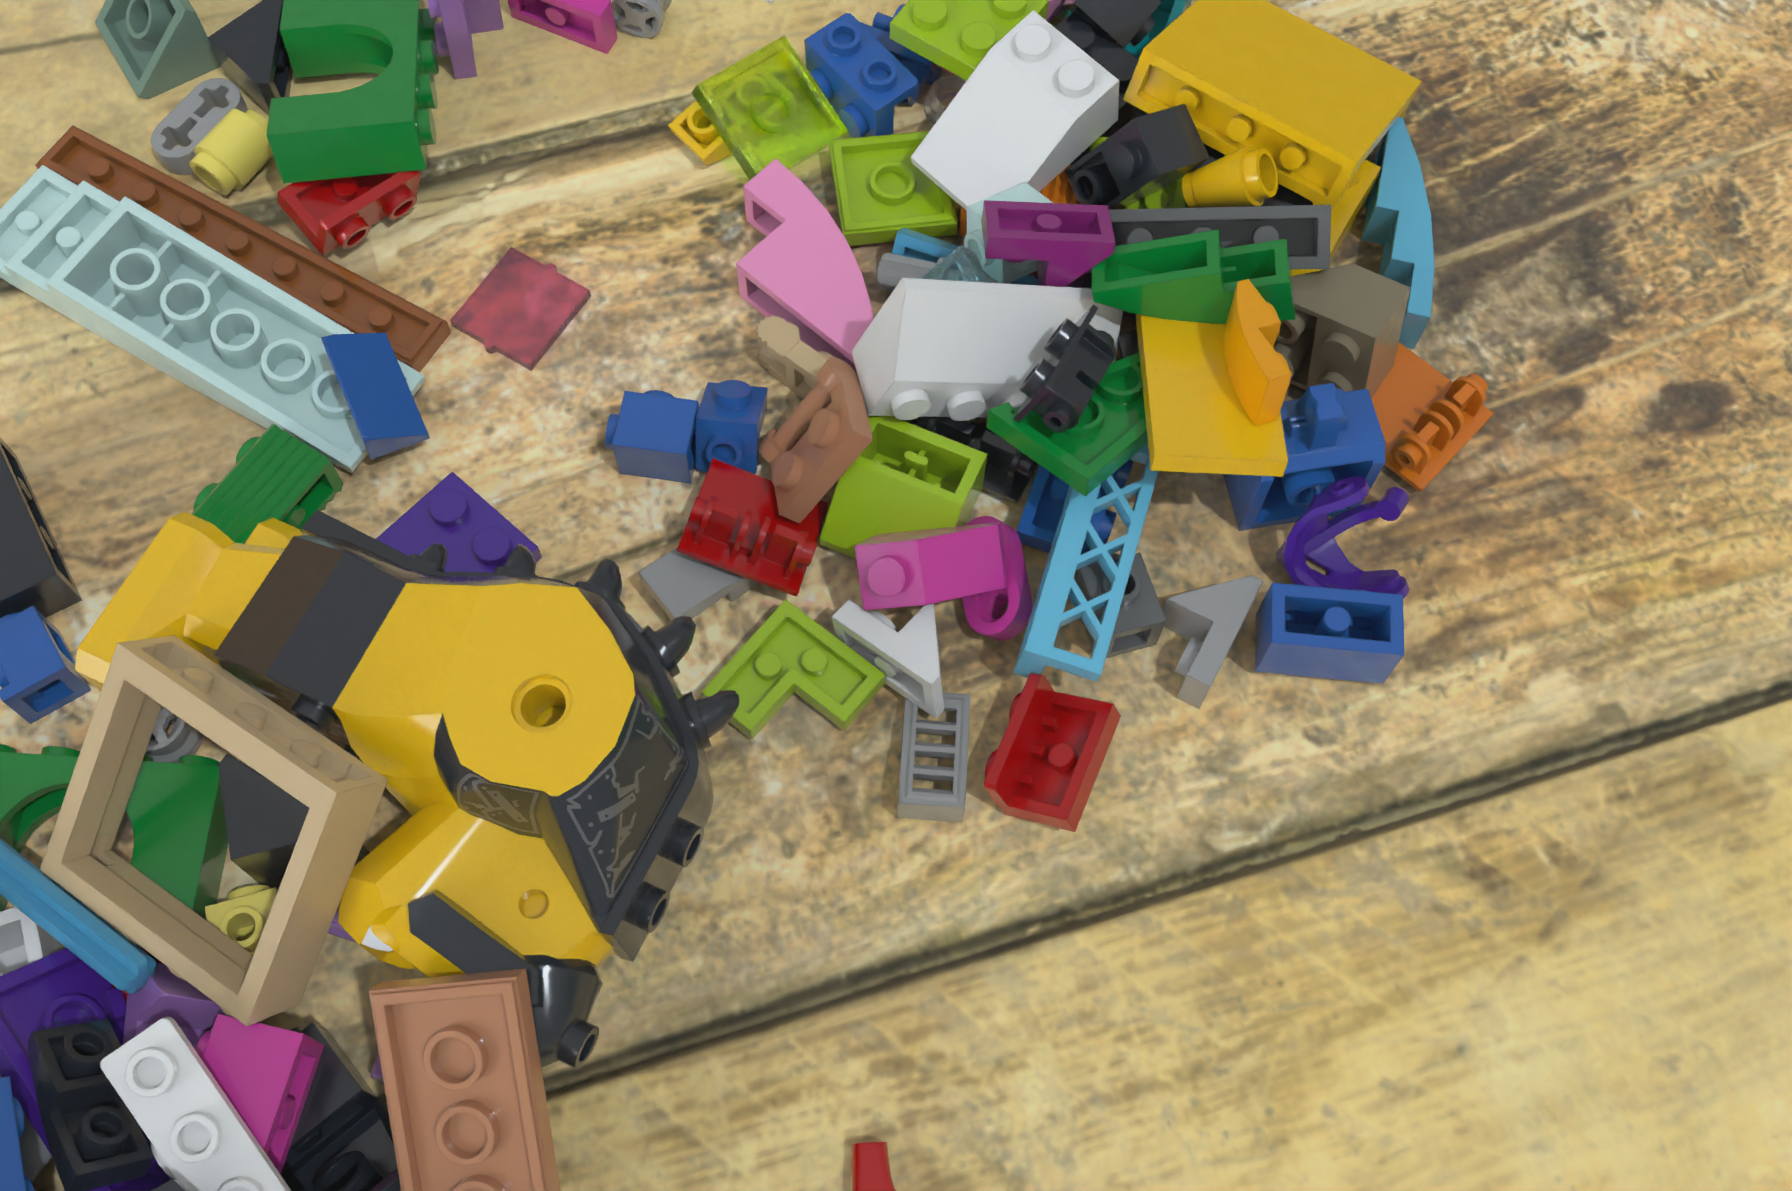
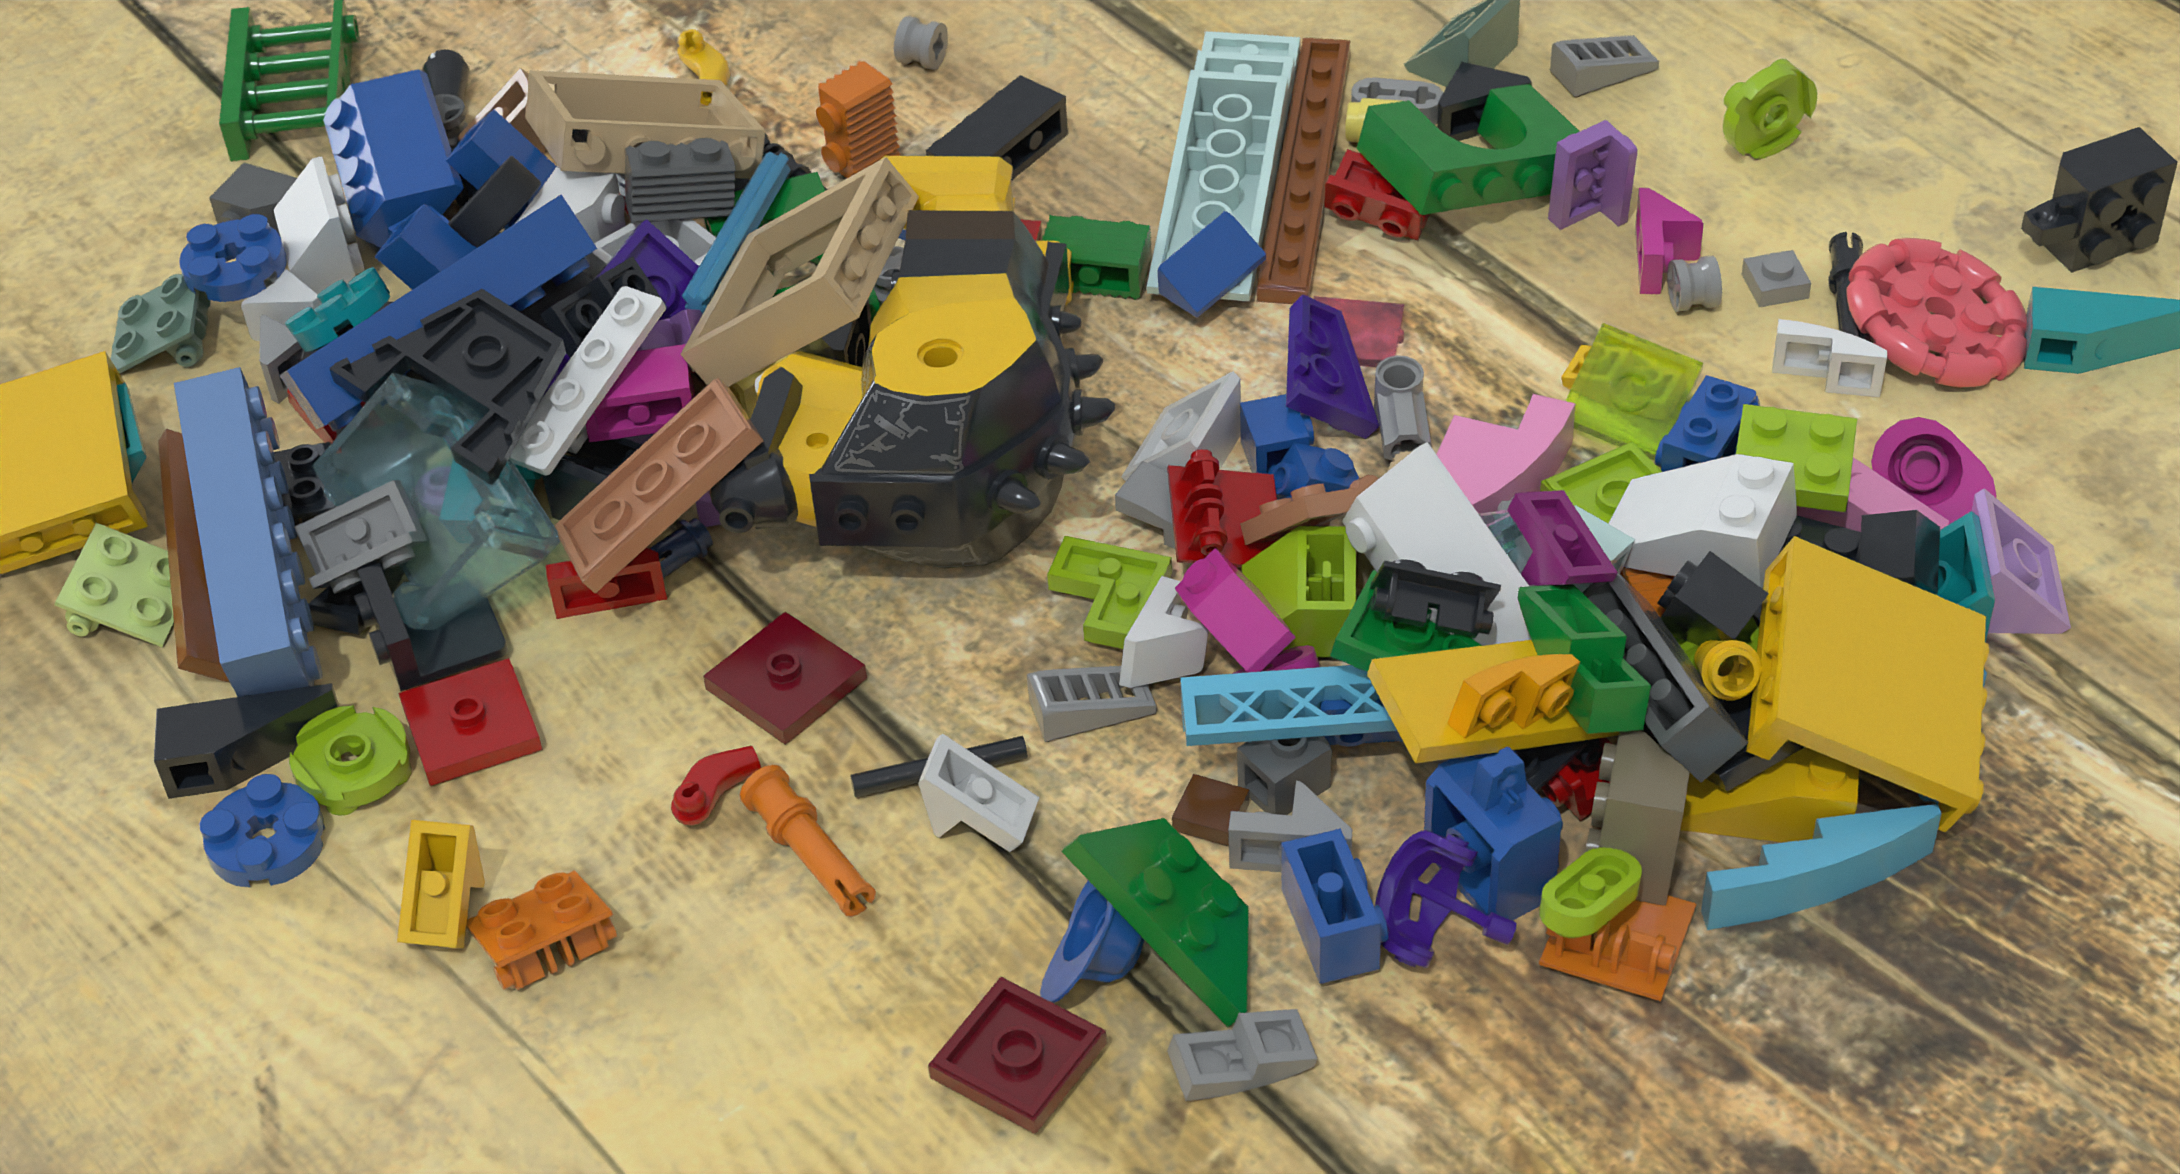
camera: 75 degrees right, 20 degrees down
(462, 522) = (1131, 370): dark purple wing -> none
(592, 349) = (1325, 371): none -> dark purple wing
(610, 512) = (1196, 422): none -> white slope
(682, 309) = (1400, 405): none -> light grey piece
(754, 1071) = (785, 677): none -> dark red plate
(960, 946) = (911, 771): none -> black bar
(993, 1131) = (794, 823): none -> orange pin
(1050, 754) = (1123, 757): red bracket -> none
(1051, 918) = (969, 790): none -> white slope
(1135, 692) = (1207, 808): none -> reddish brown tile
(1287, 877) = (1094, 947): none -> blue piece
(1293, 775) = (1174, 905): none -> green wing
(1392, 999) = (1017, 1054): none -> dark red plate
(1424, 411) = (1590, 892): none -> lime plate
(1446, 786) = (1253, 1054): none -> light grey slope

